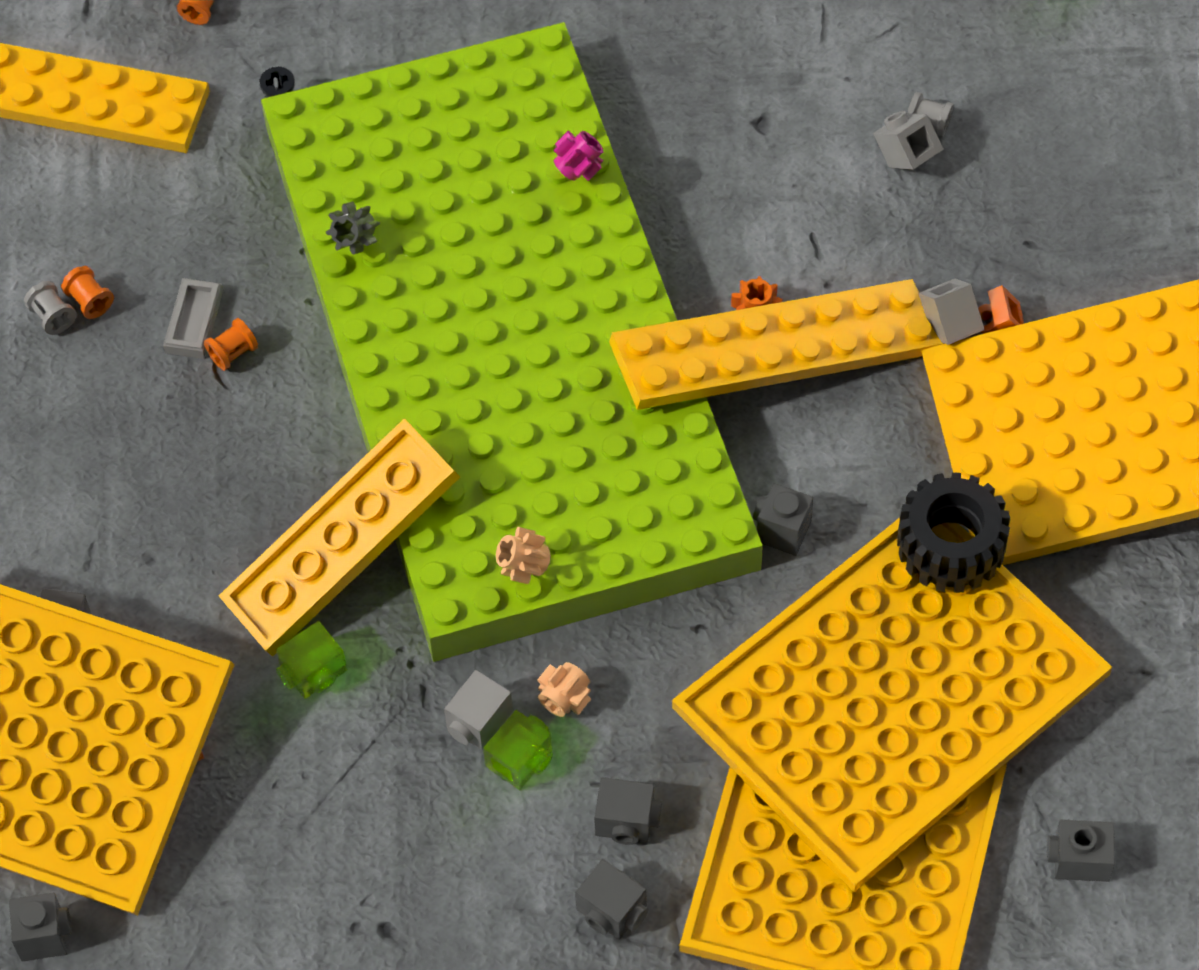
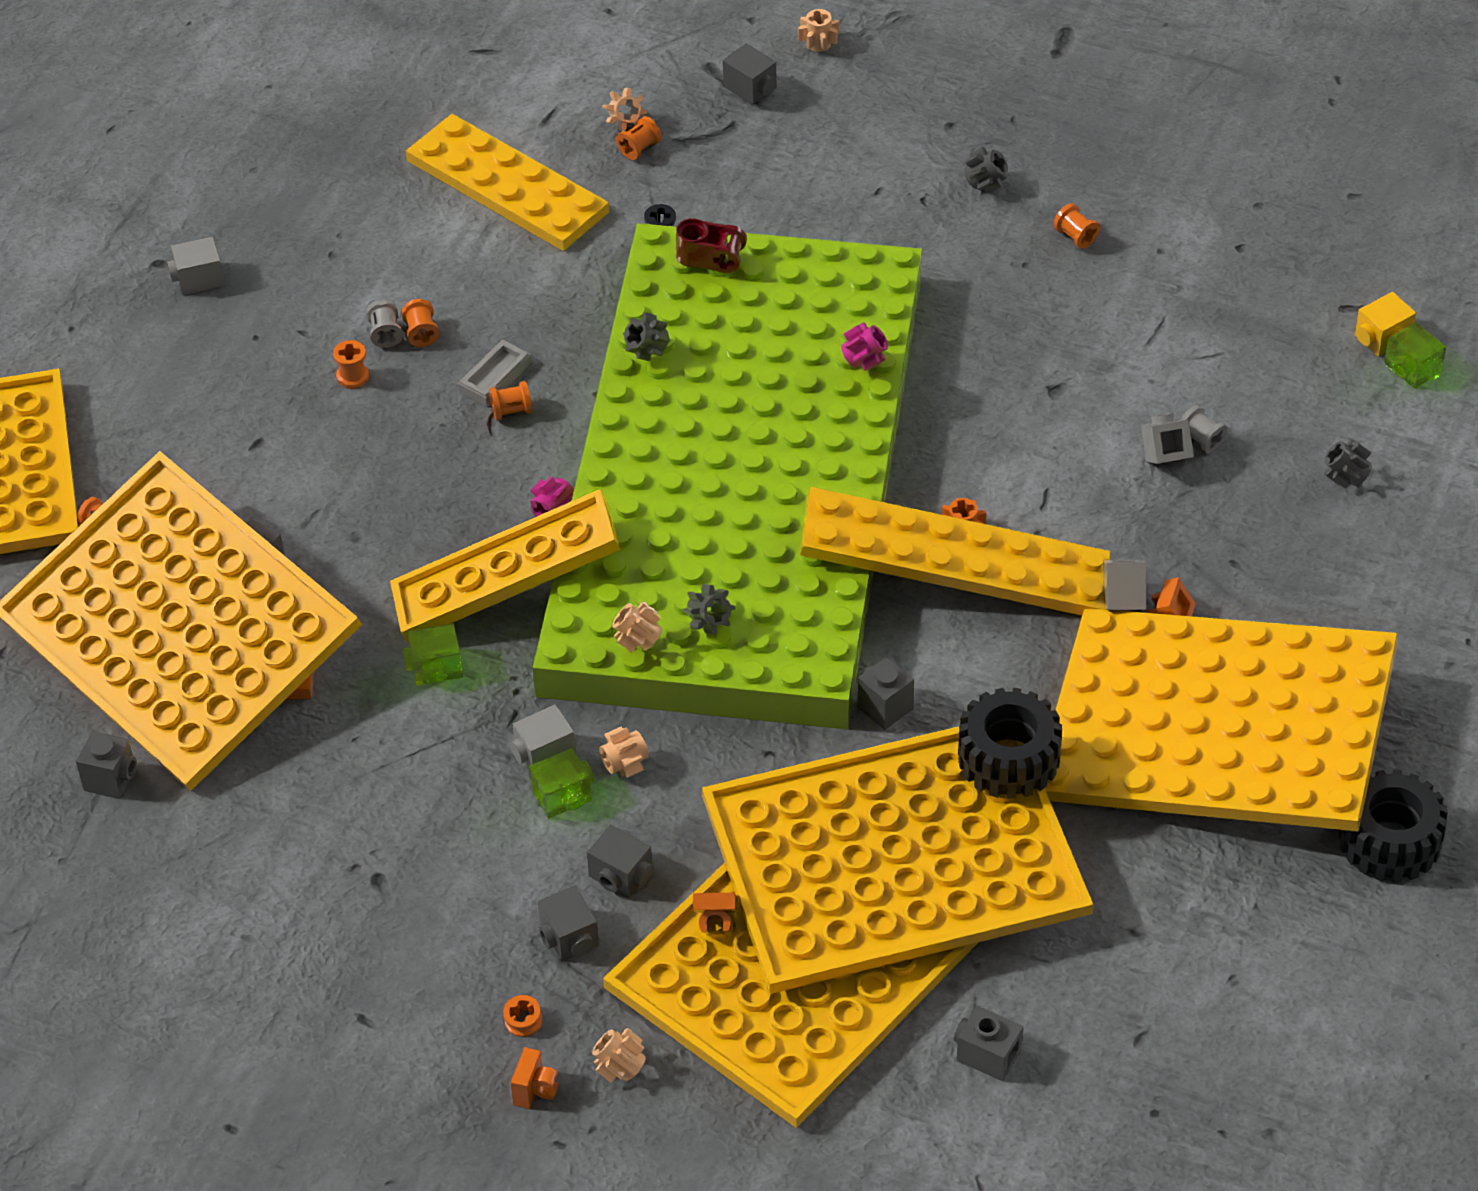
camera: 25 degrees right, 10 degrees down
(41, 366) = (350, 358): none -> orange bush
(339, 440) = (550, 495): none -> dark pink gear
(355, 100) = (706, 245): none -> dark red piece
(583, 506) = (698, 606): none -> dark grey gear
(753, 820) = (714, 905): none -> orange tile
(1086, 99) = (1348, 463): none -> dark grey gear

